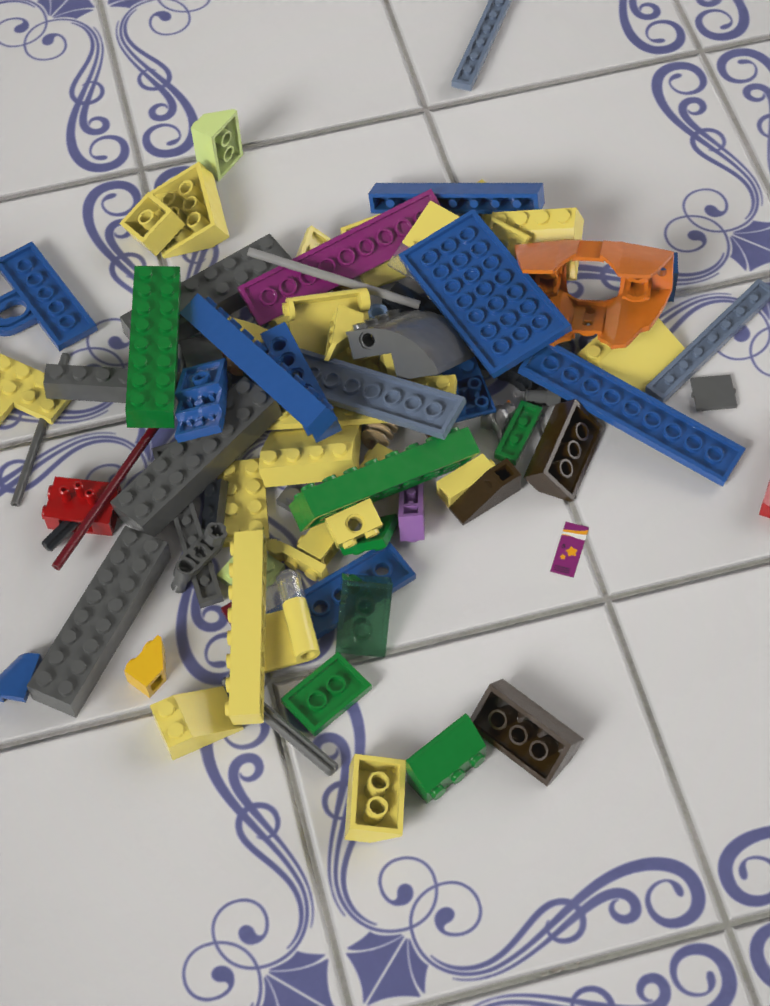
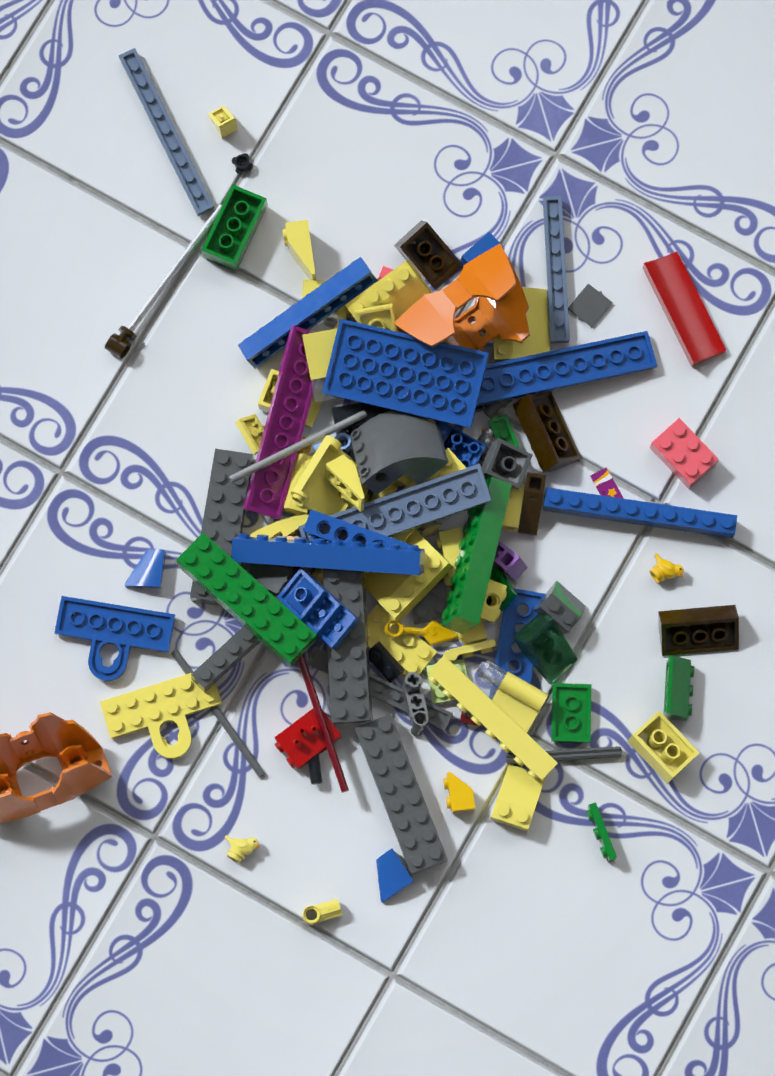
camera: 45 degrees left, 20 degrees up
(114, 282) = (148, 570): none -> slope
(152, 223) = (130, 511): light yellow brick -> none
(197, 203) = (136, 479): light yellow slope -> none
(217, 141) = (106, 415): yellowish green slope -> none
(233, 822) = (600, 832): none -> green plate
(281, 518) = (433, 632): none -> yellow piece
(288, 117) = (119, 343): none -> flat silver piece
(415, 595) = (561, 606): none -> dark grey slope
(469, 108) = (234, 227): none -> green brick
(496, 434) = (506, 463): none -> dark grey slope
(510, 153) = (299, 242): none -> light yellow slope
(528, 78) = (237, 162): none -> black plate
(544, 44) = (223, 121): none -> light yellow slope
(549, 652) = (665, 570): none -> yellow animal
(579, 586) = (640, 513): none -> blue brick
(607, 227) = (428, 254): none -> dark brown slope
(673, 571) = (684, 453): none -> coral brick

